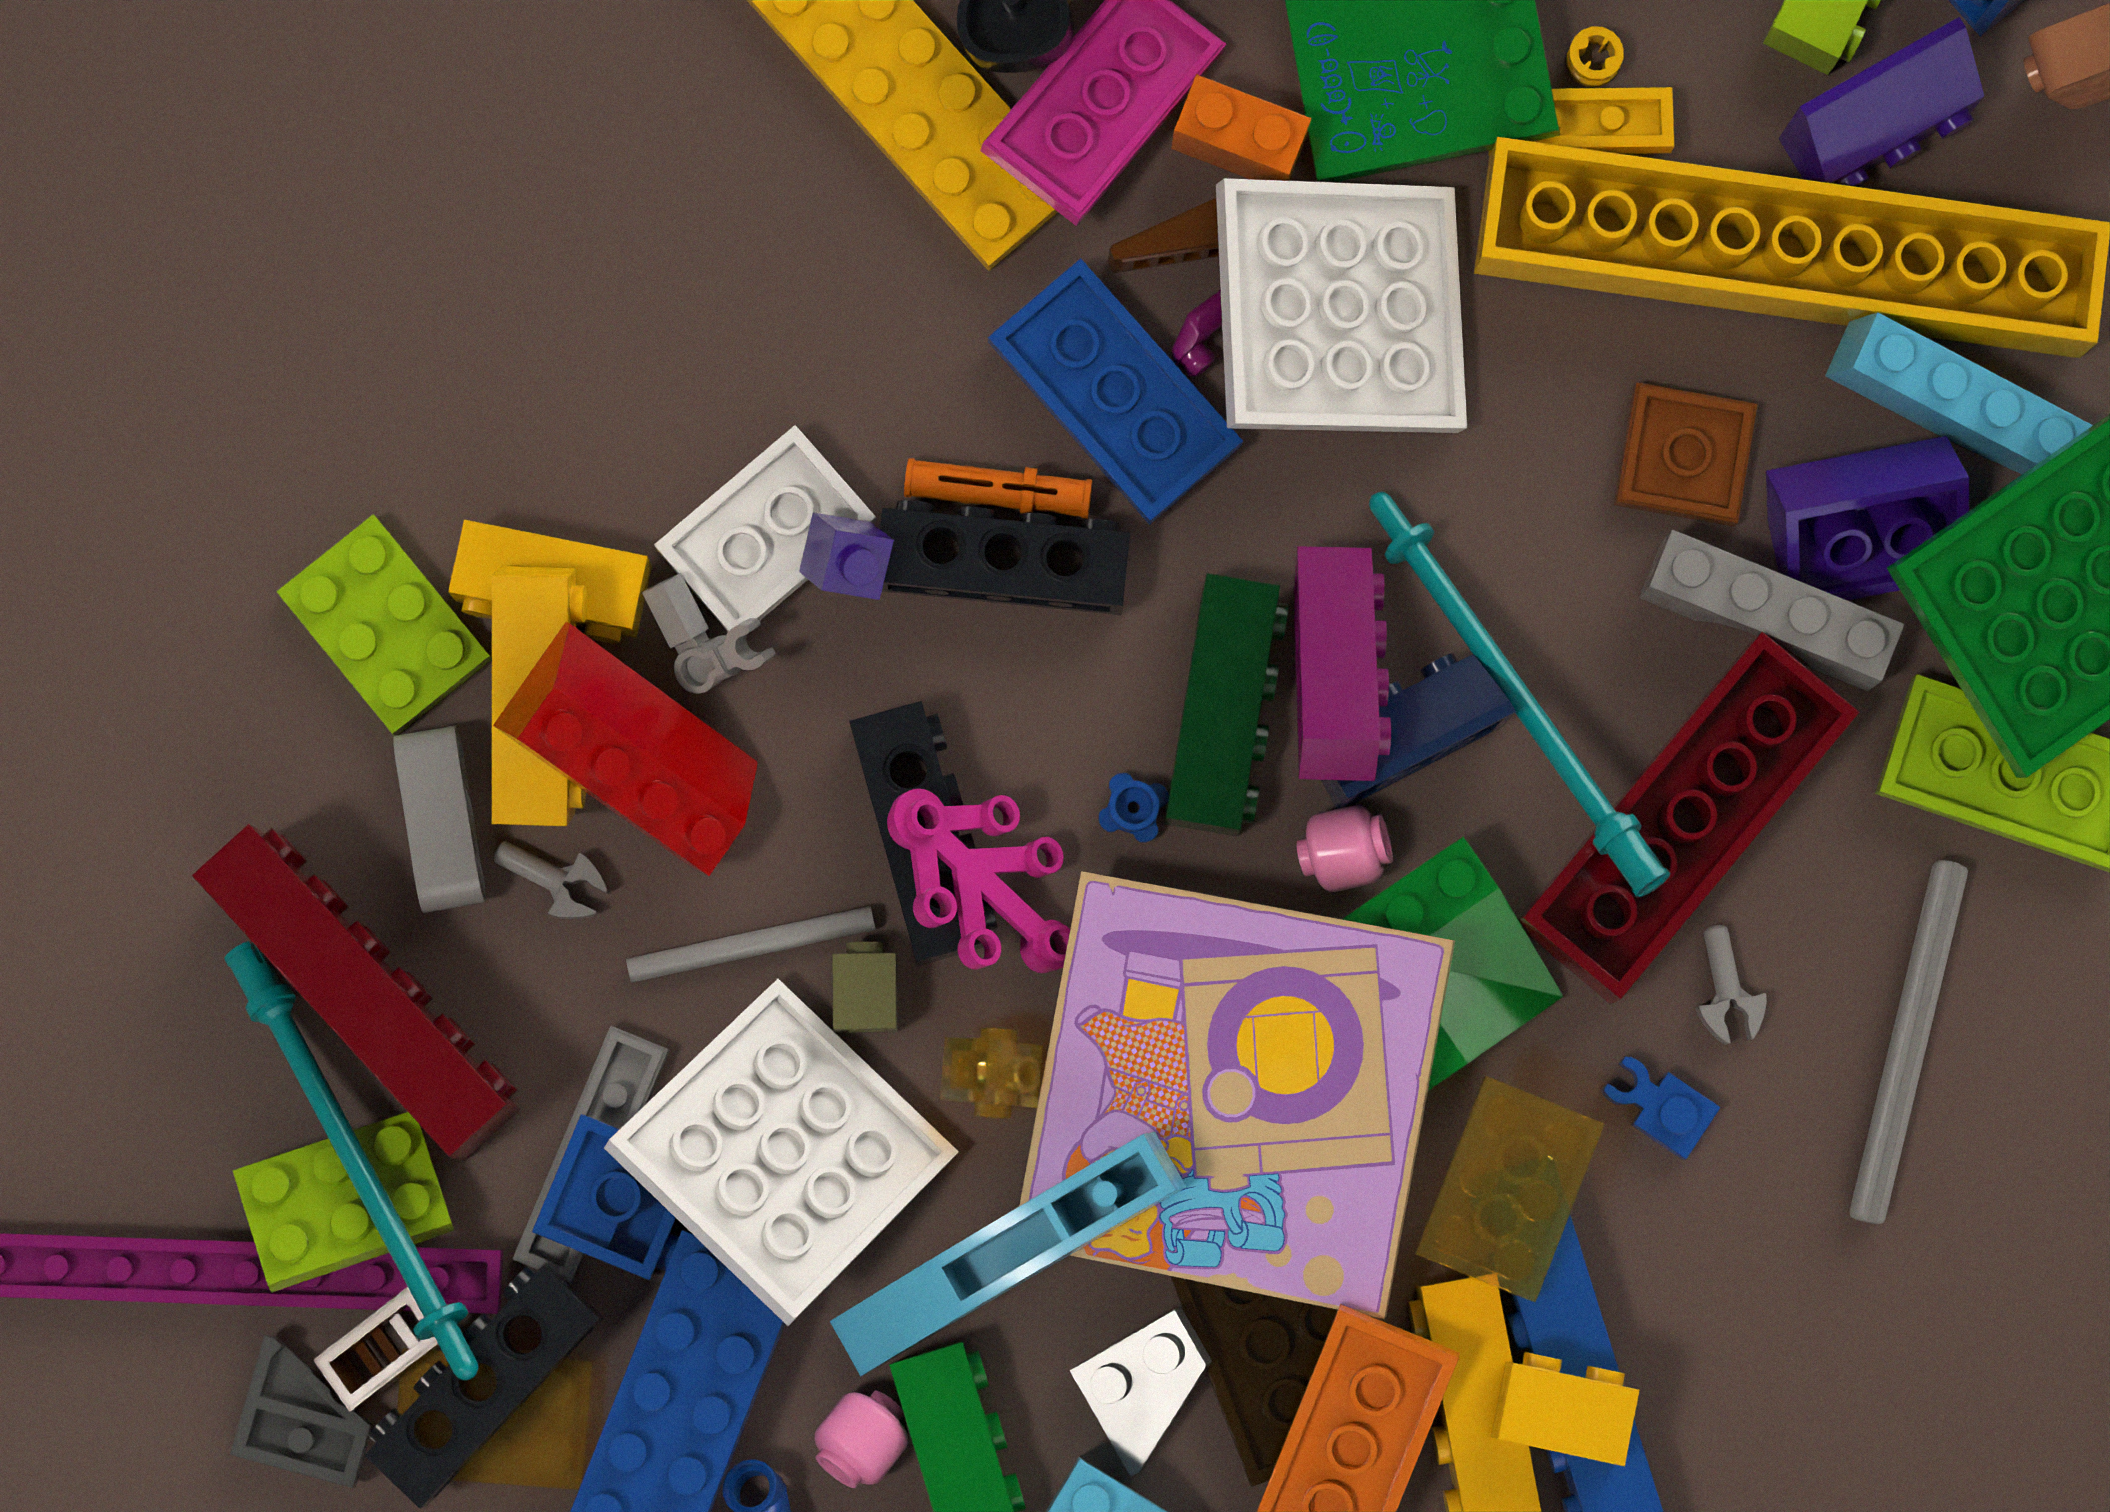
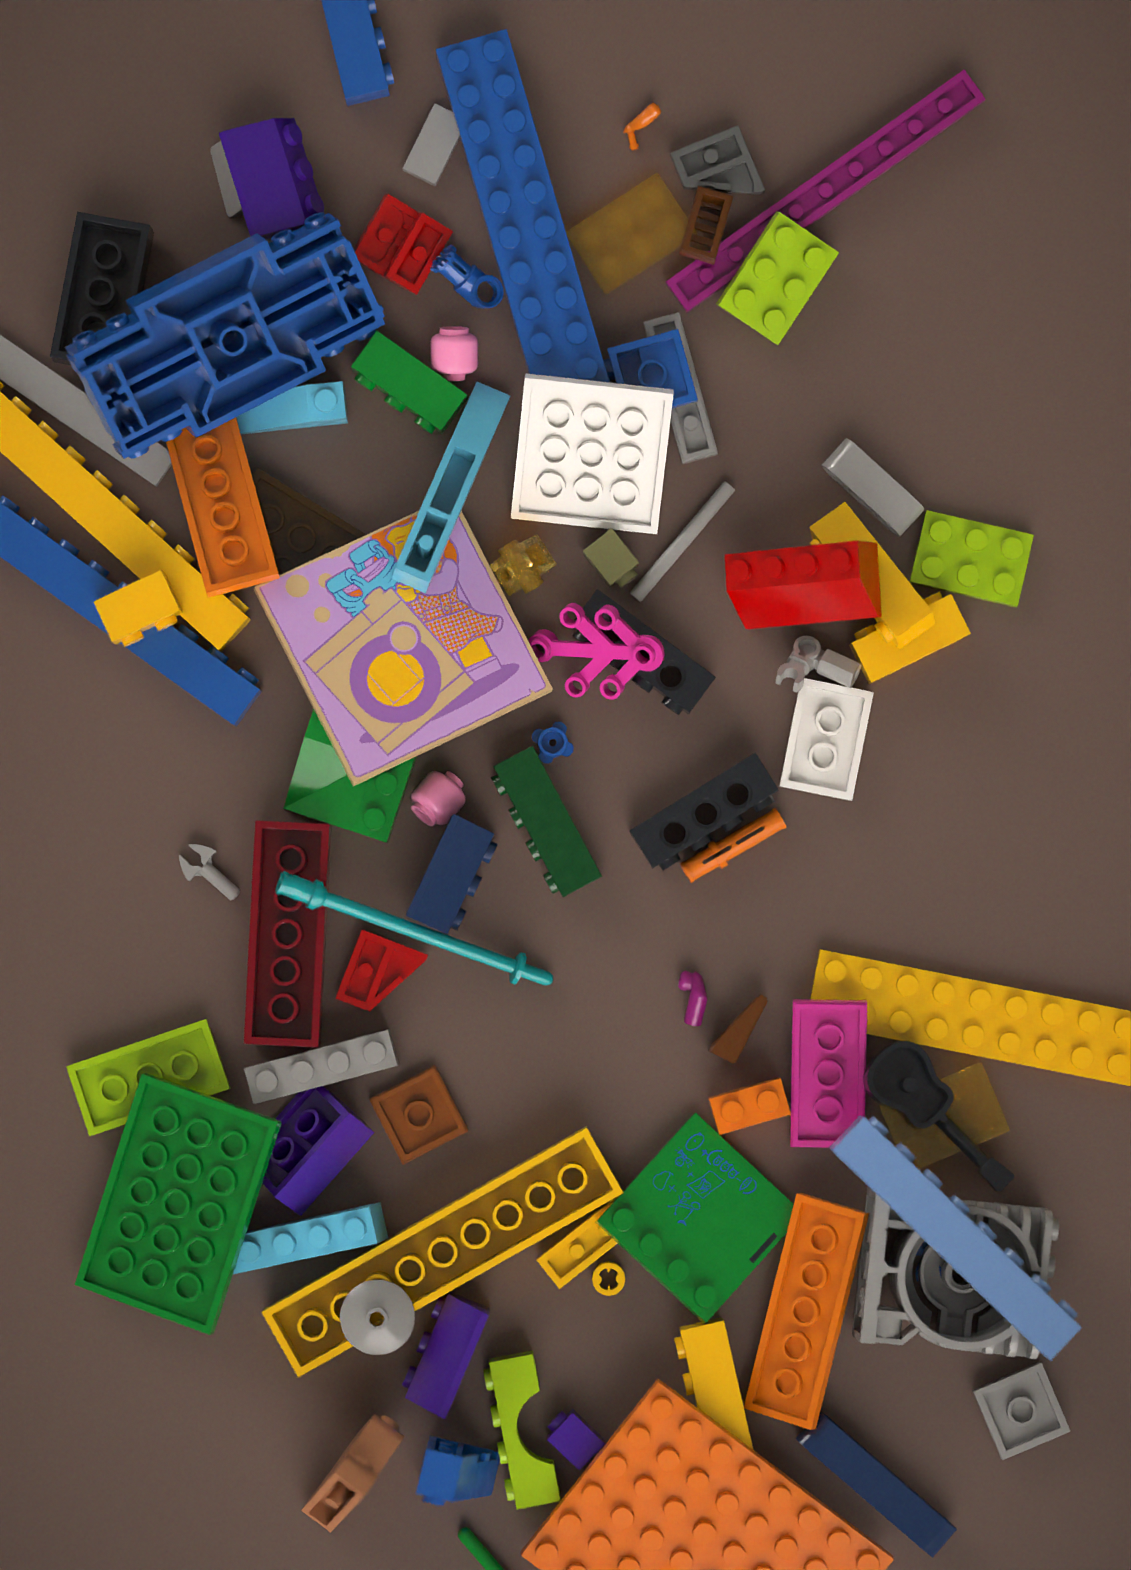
camera: 145 degrees right, 5 degrees up
(272, 1005) = (881, 341): teal bar -> none
(356, 992) = (845, 376): dark red brick -> none
(426, 1470) = (646, 184): black brick -> none
(553, 878) = (798, 501): light grey bar -> none
(846, 556) = (777, 753): dark purple brick -> none
(1115, 391) = (713, 934): blue plate -> none
(1143, 1384) = (343, 476): wing -> none
(1337, 664) = (507, 877): magenta brick -> none
(1340, 306) = (636, 1055): white plate -> none
(1509, 1189) = (241, 691): clear yellow plate -> none
(1599, 683) = (376, 970): none -> red wing
(1668, 1112) = (192, 791): blue plate -> none
(1908, 1042) = (104, 911): light grey axle -> none
(1929, 242) = (377, 1297): none -> light grey dish

